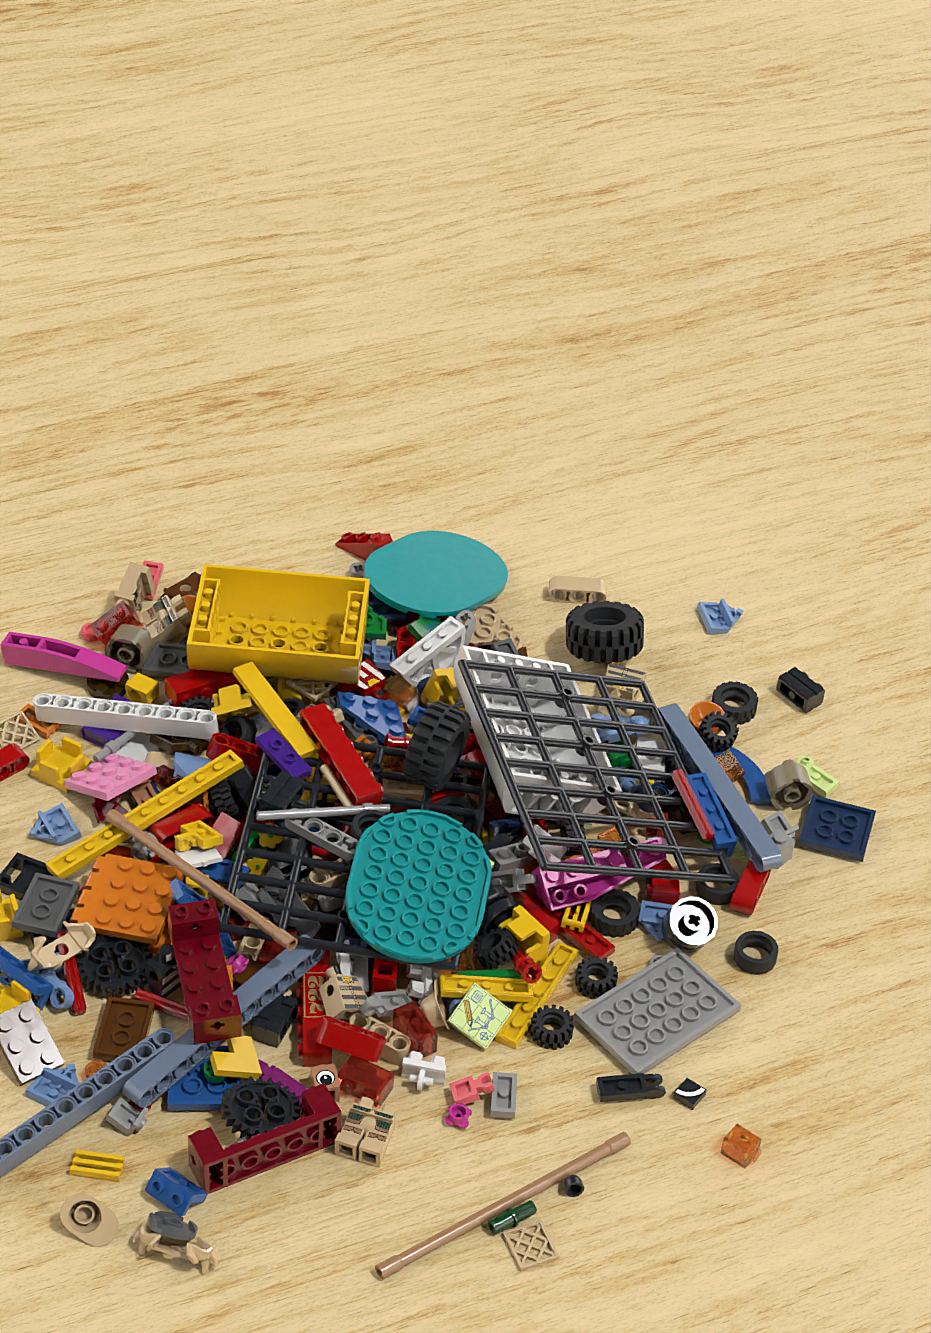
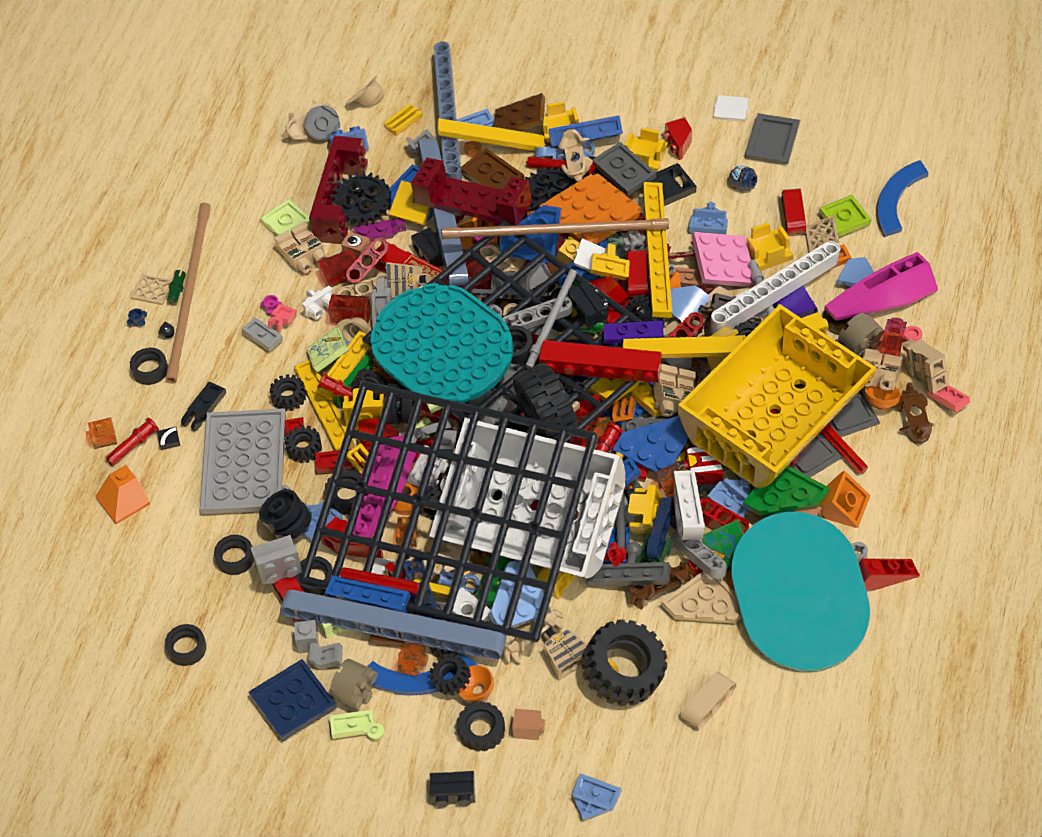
camera: 135 degrees right, 10 degrees up
(47, 683) = (854, 271): none -> medium blue slope
(83, 1045) = (489, 135): none -> yellow tile
(334, 1182) = (284, 218): none -> yellowish green tile
(579, 1001) = (291, 423): none -> red tile
(584, 1221) = (136, 317): none -> dark blue plate
(633, 1151) = (144, 355): none -> black tyre
(705, 676) = (528, 724): none -> nougat brick
(714, 1115) = (138, 436): none -> red pin
(742, 893) = (276, 560): none -> light grey bracket
(786, 1085) = (122, 495): none -> orange slope
(874, 917) = (191, 657): none -> black tyre

